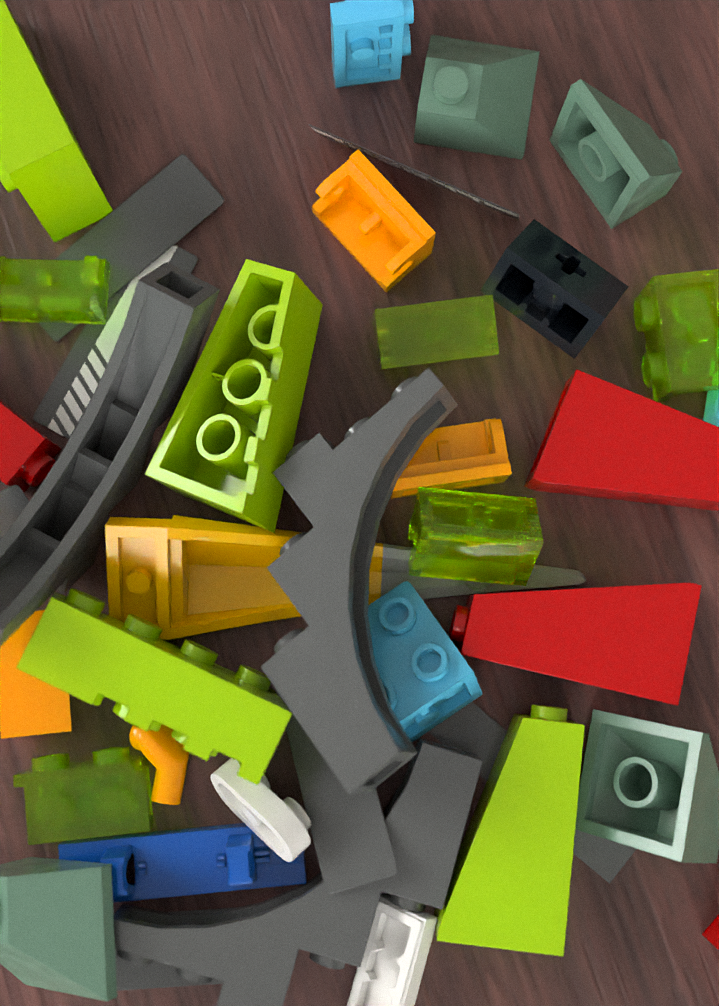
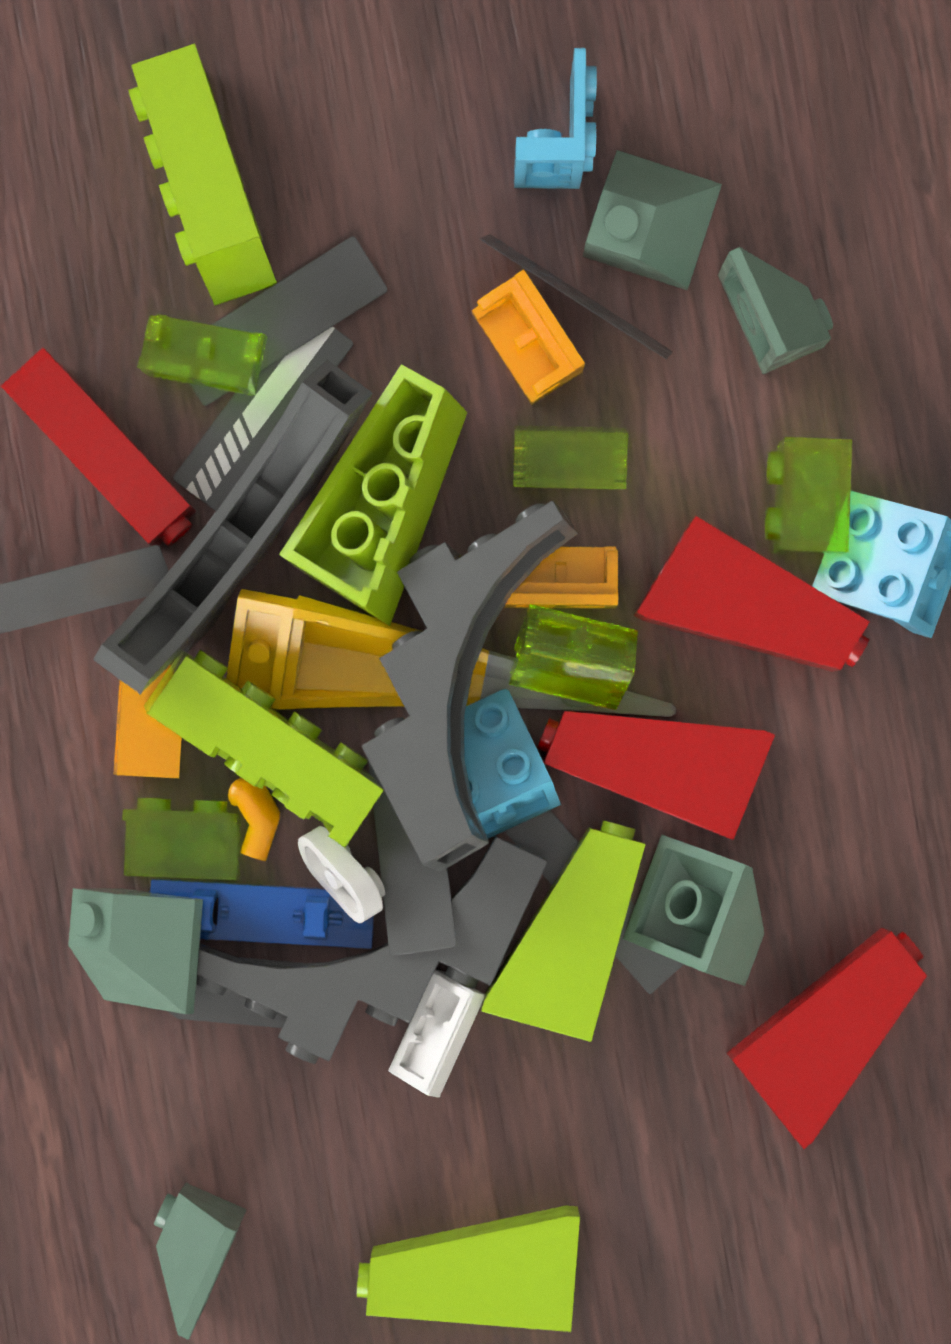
camera: 10 degrees right, 5 degrees up
(553, 288) = (690, 432): black brick -> none

